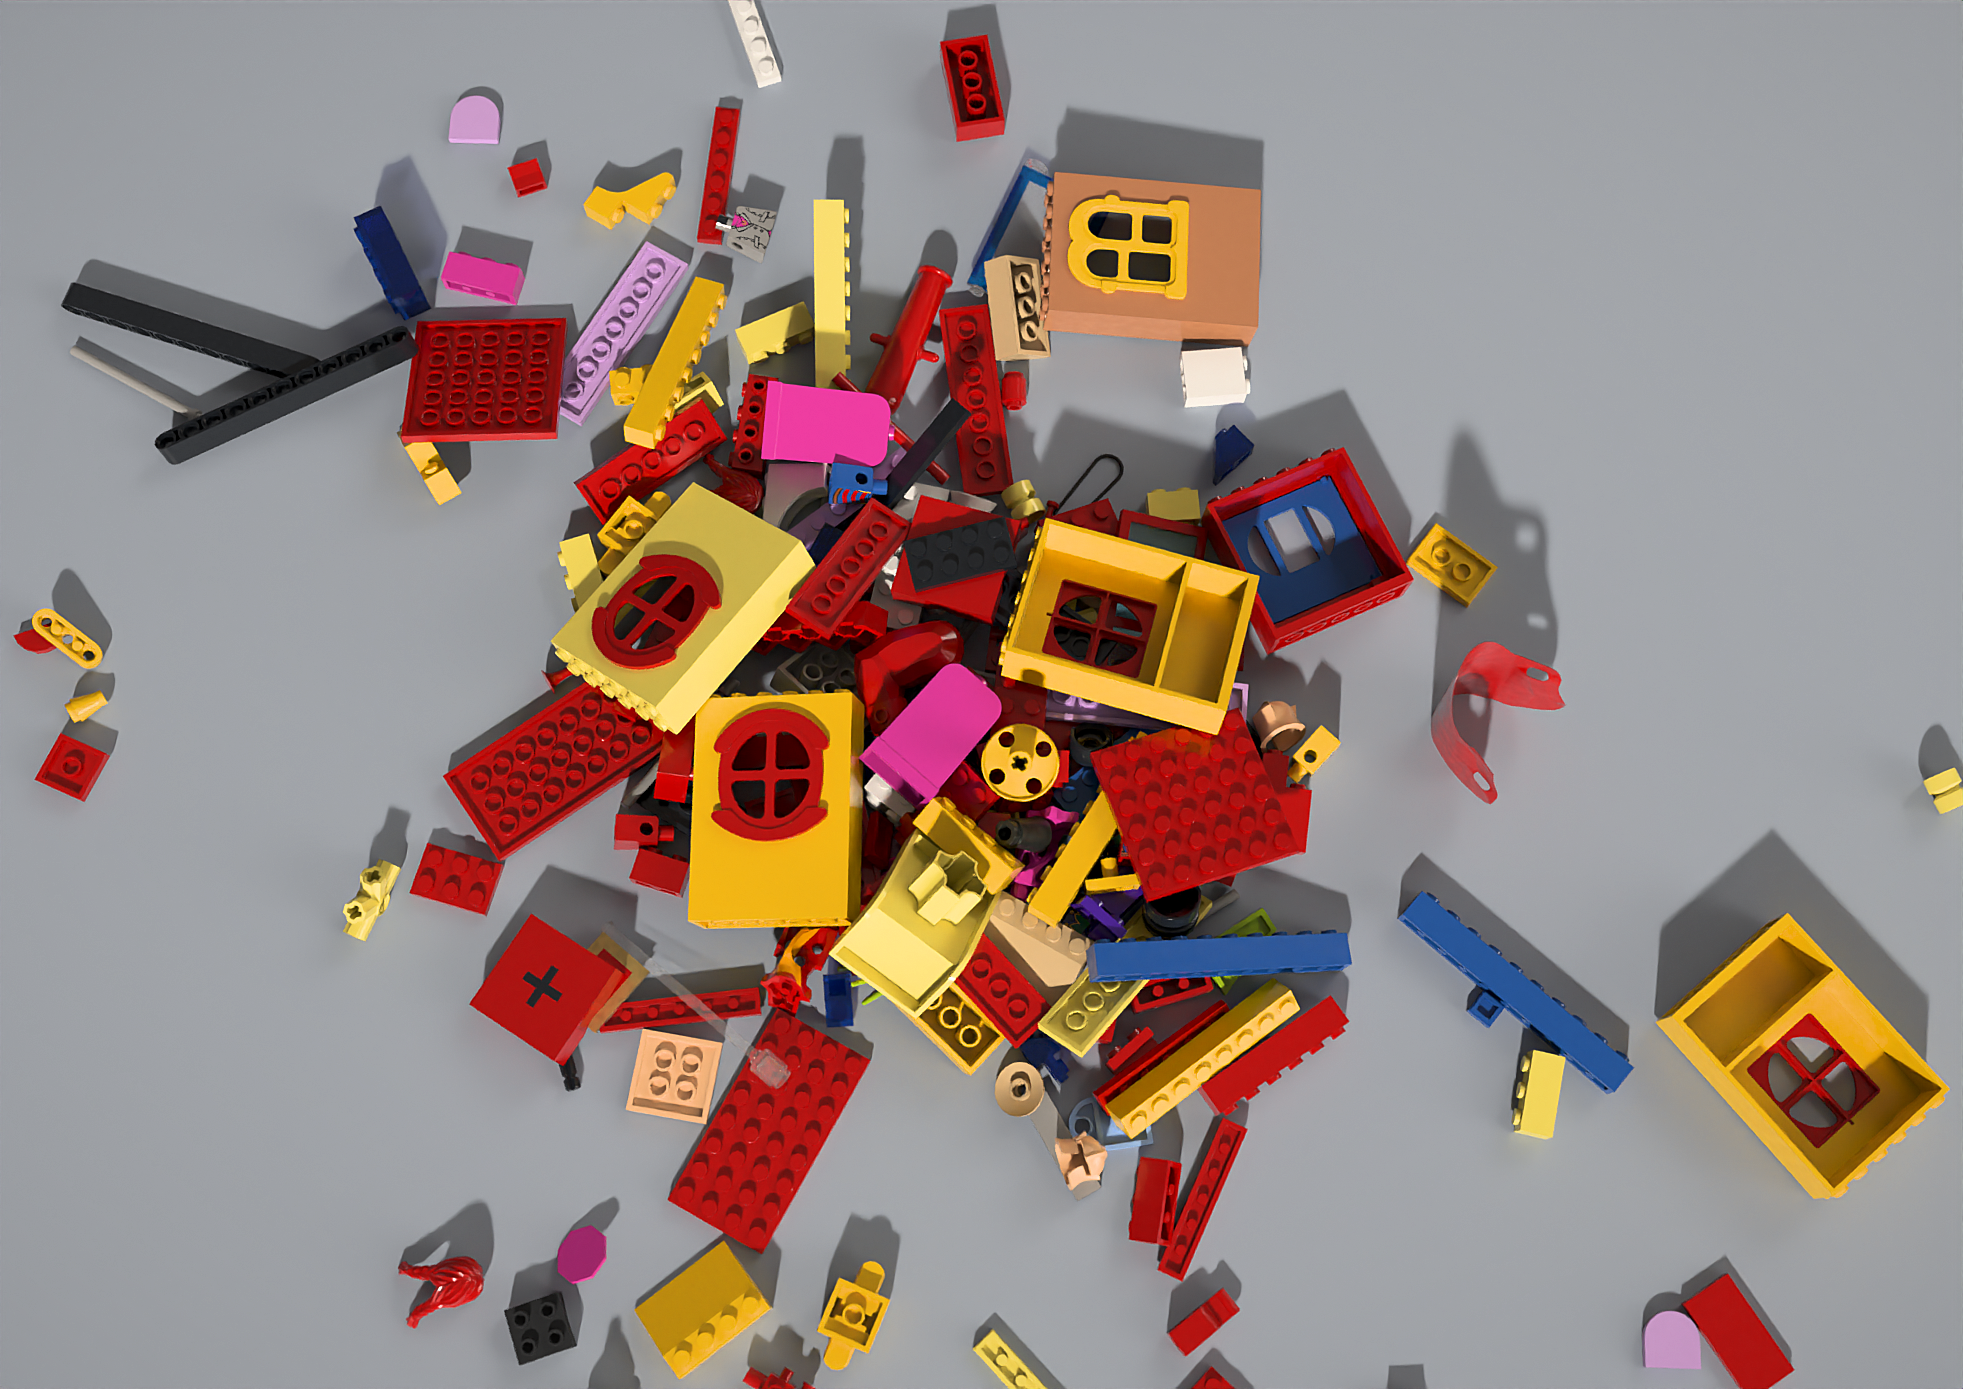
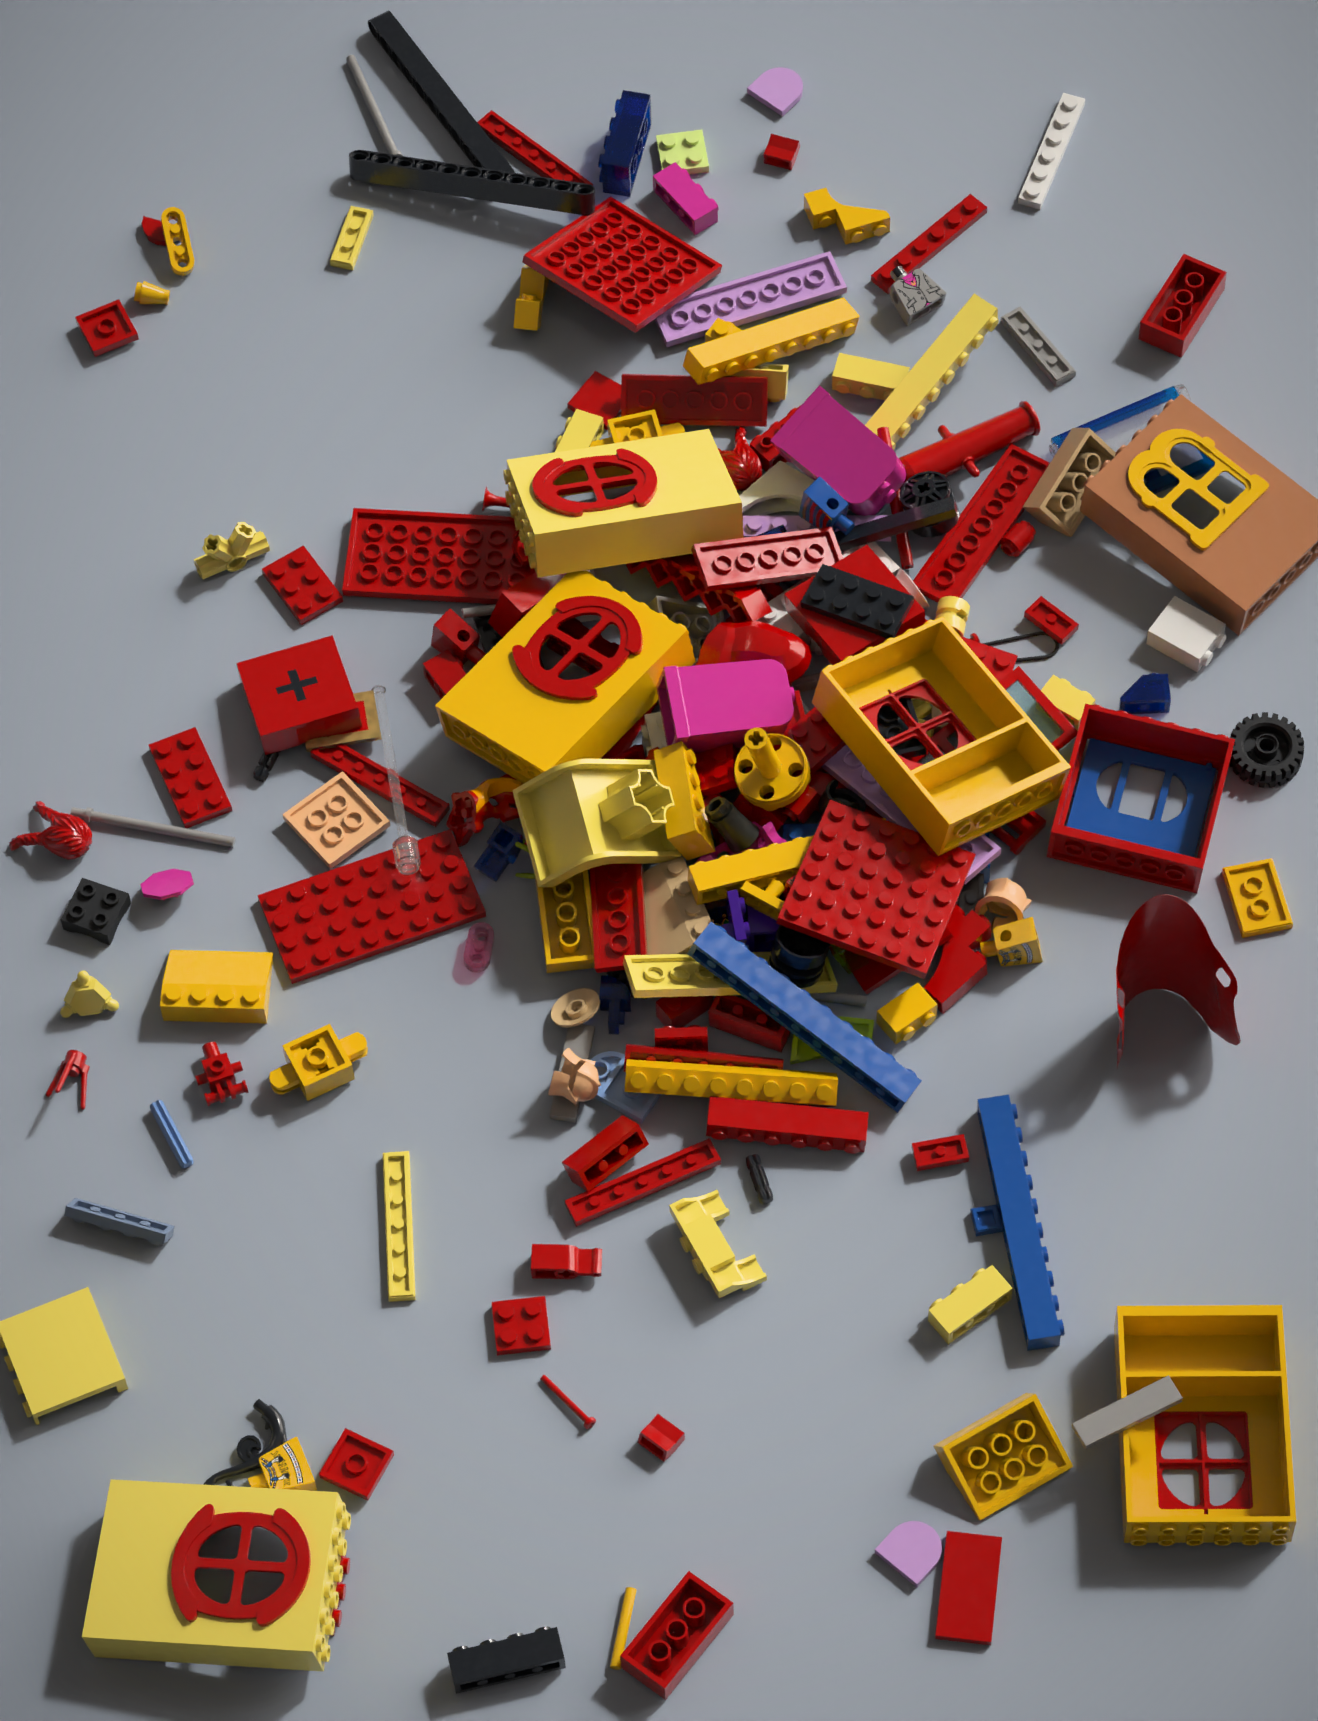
camera: 45 degrees right, 15 degrees down
(220, 520) = (351, 238): none -> light yellow tile
(312, 328) = (527, 150): none -> red tile
(441, 234) = (685, 149): none -> yellowish green plate
(457, 1240) = (90, 815): none -> light grey bar
(513, 1135) = (190, 777): none -> red plate
(565, 516) = (599, 397): none -> red tile
(884, 205) = (1038, 346): none -> light grey tile
(892, 1097) = (479, 949): none -> clear pink plate
(917, 408) = (925, 489): none -> black wheel
(1099, 443) = (1051, 620): none -> red plate
(1280, 883) = (907, 1014): none -> yellow brick
(1287, 1118) = (759, 1179): none -> black axle
(1301, 1214) = (709, 1248): none -> light yellow bracket
(1360, 415) = (1266, 766): none -> black wheel
(1406, 980) = (940, 1152): none -> red plate
(1670, 1202) = (1003, 1455): none -> yellow slope
(1759, 1104) = (1127, 1412): none -> light grey tile

